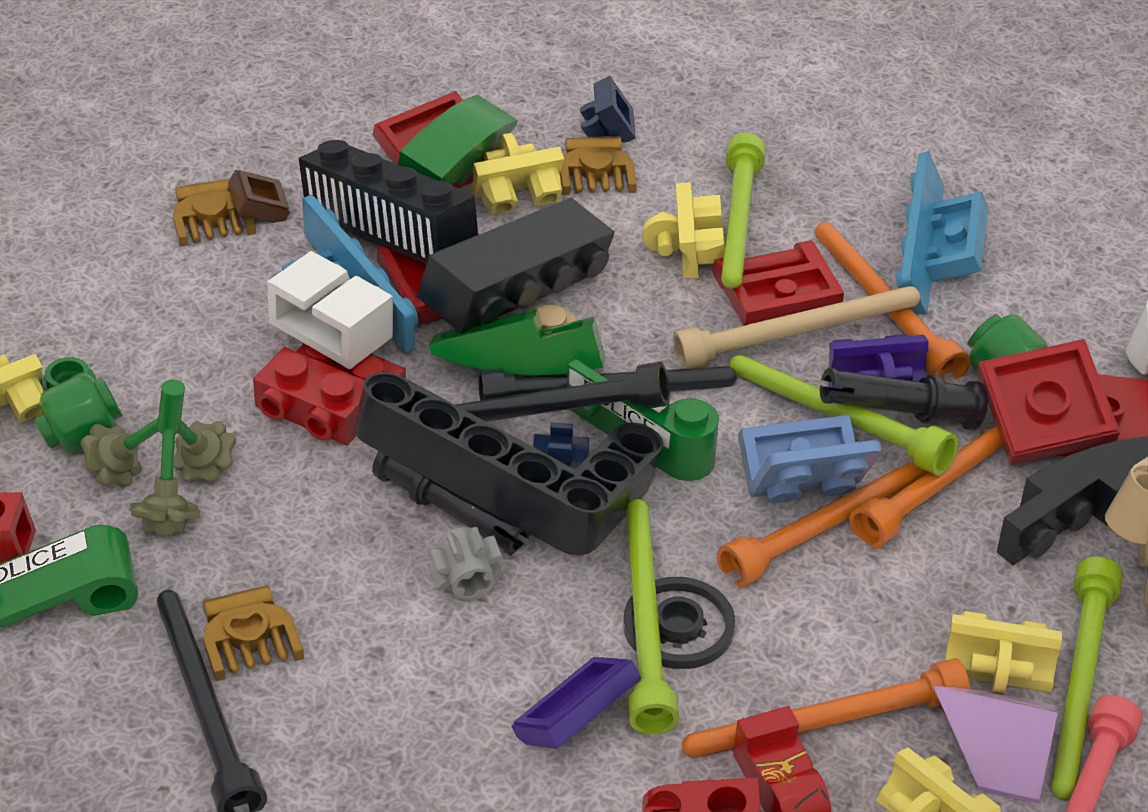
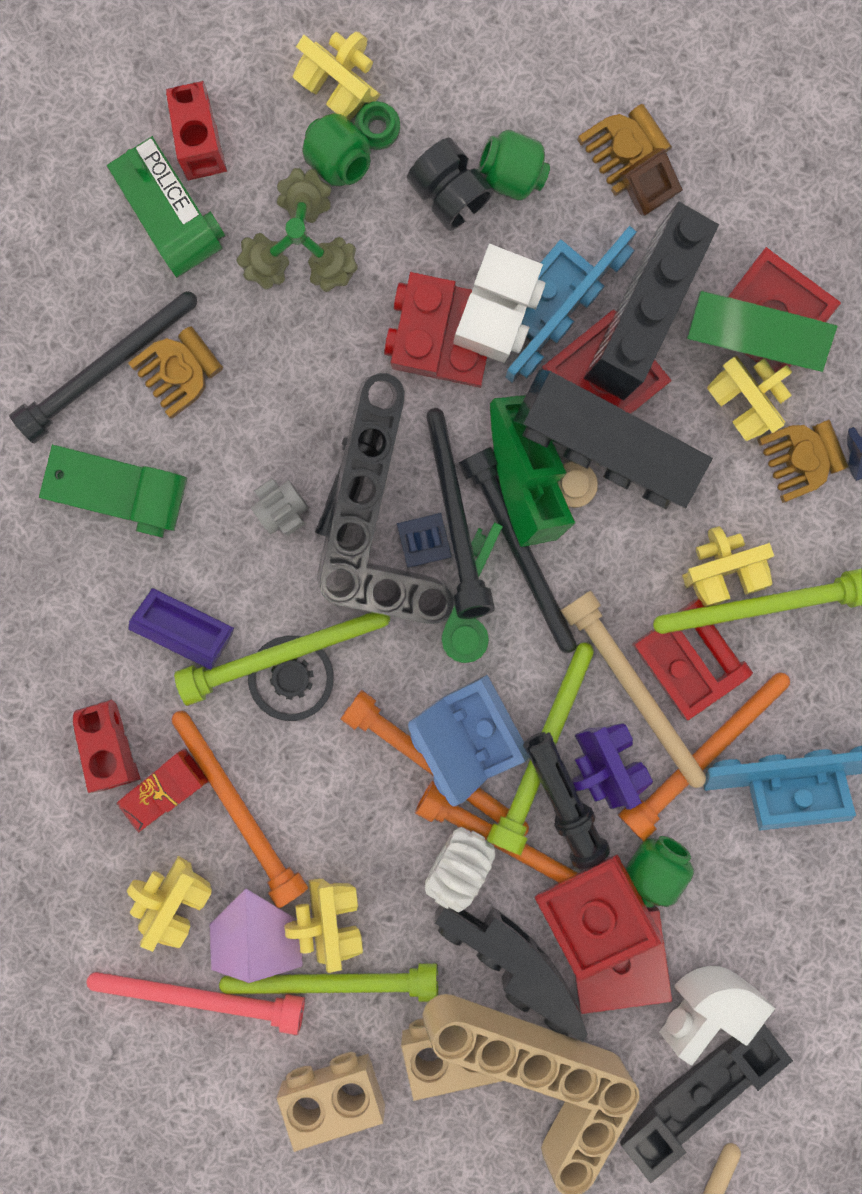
camera: 75 degrees right, 45 degrees up
(175, 331) = (444, 178): none -> black wheel
(182, 283) = (514, 164): none -> green head
(389, 703) = (114, 489): none -> green door
(961, 500) = (460, 869): none -> white gear

